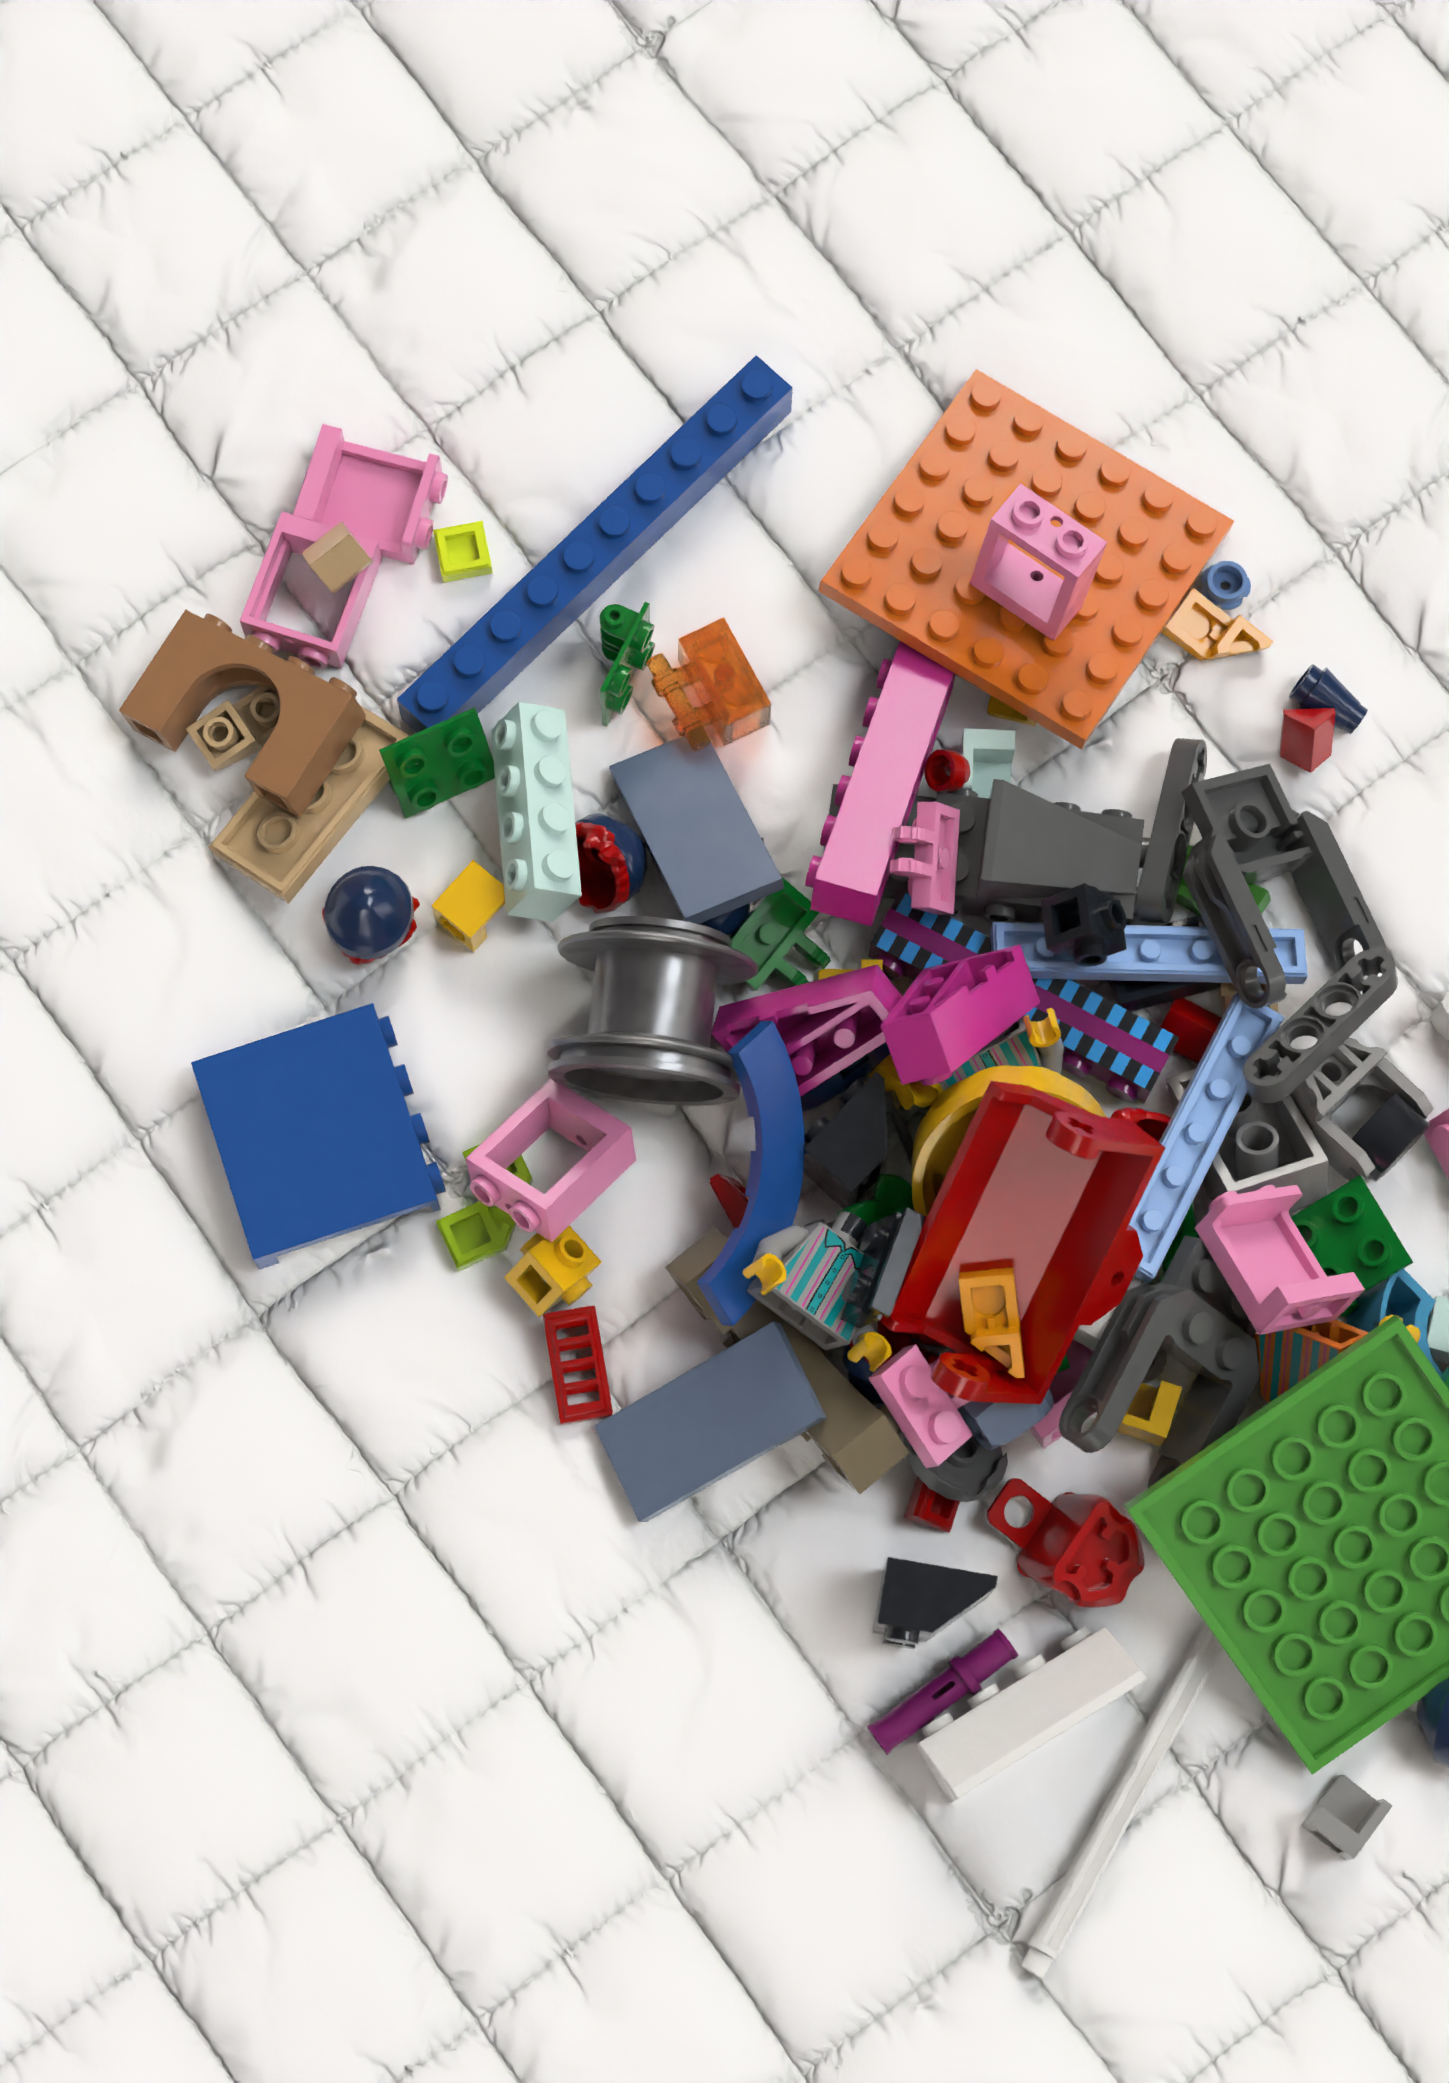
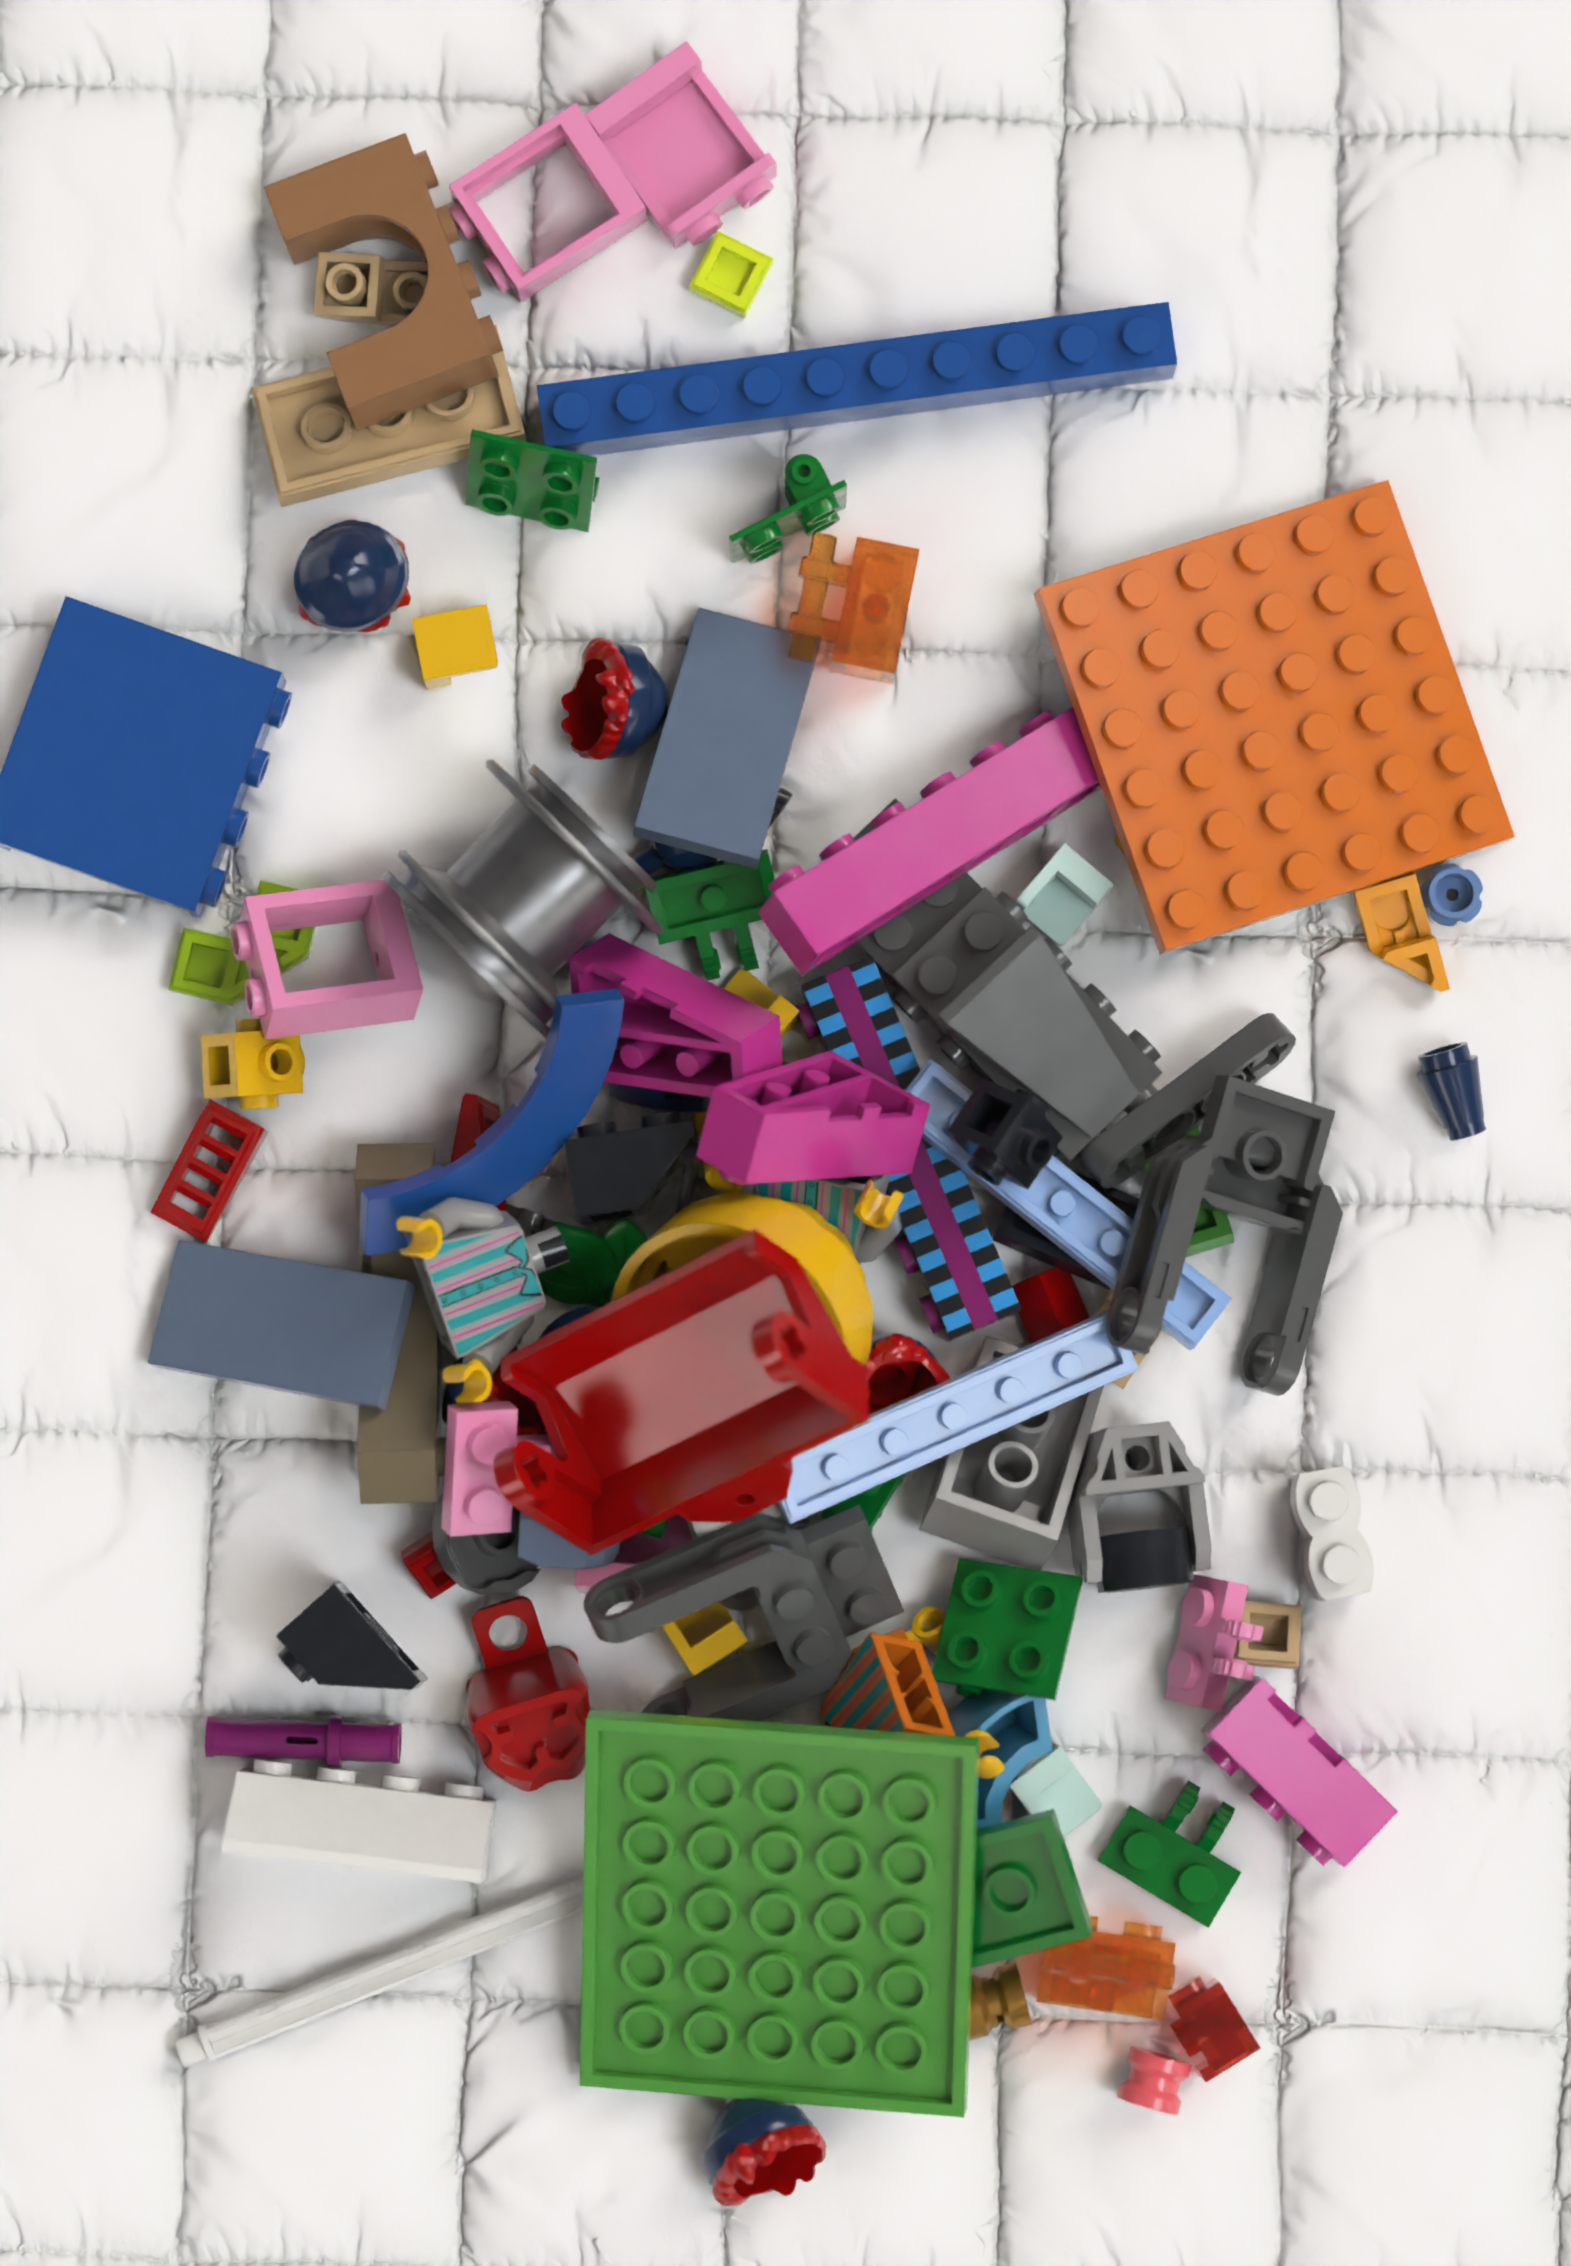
camera: 40 degrees right, 10 degrees up
(337, 557) = (589, 194): tan slope -> none
(536, 812) = (583, 603): light aqua brick -> none
(887, 1254) = (519, 1325): black plate -> none
(935, 857) = (917, 956): bright pink hinge -> none
(946, 777) = (1009, 875): red hinge -> none
(993, 1315) = (608, 1440): light orange slope -> none
(1023, 583) = (1241, 749): bright pink window -> none
(1271, 1262) = (918, 1594): bright pink panel -> none
(1307, 736) = (1401, 1111): red slope -> none
(1314, 1022) = (1156, 1398): dark grey beam -> none
(1345, 1817) = (580, 2147): light grey panel -> none

